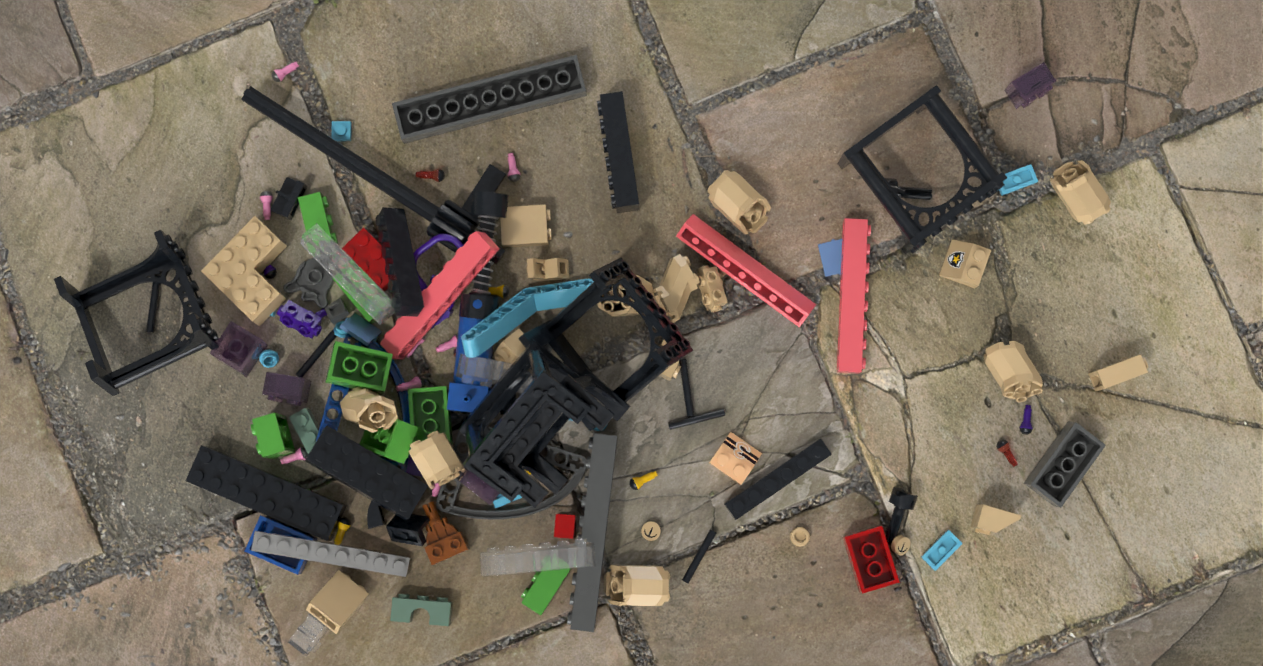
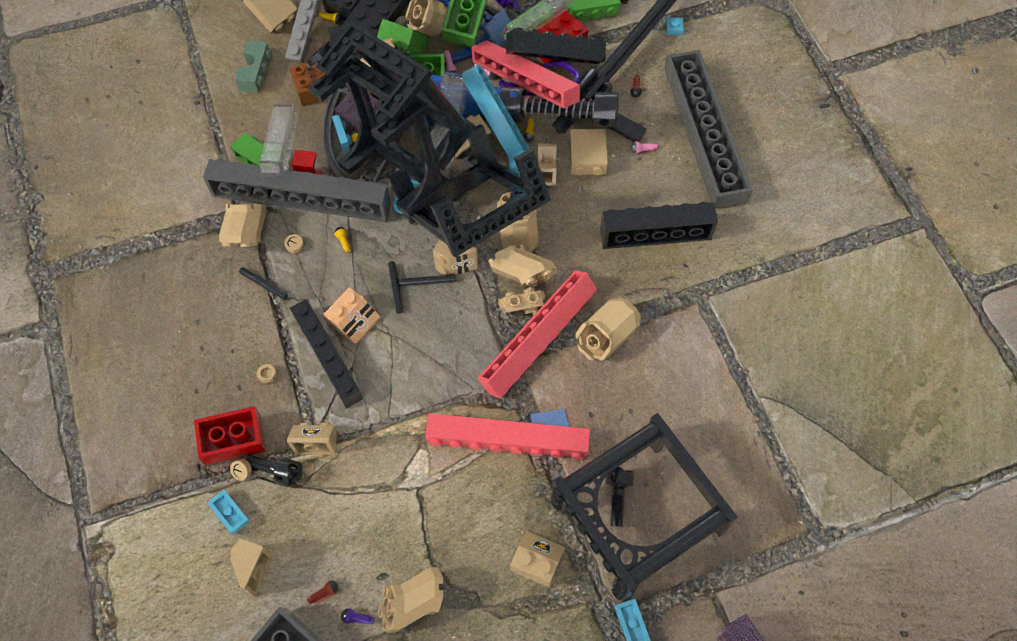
camera: 90 degrees right, 20 degrees down
(867, 478) = (313, 439): none -> tan slope

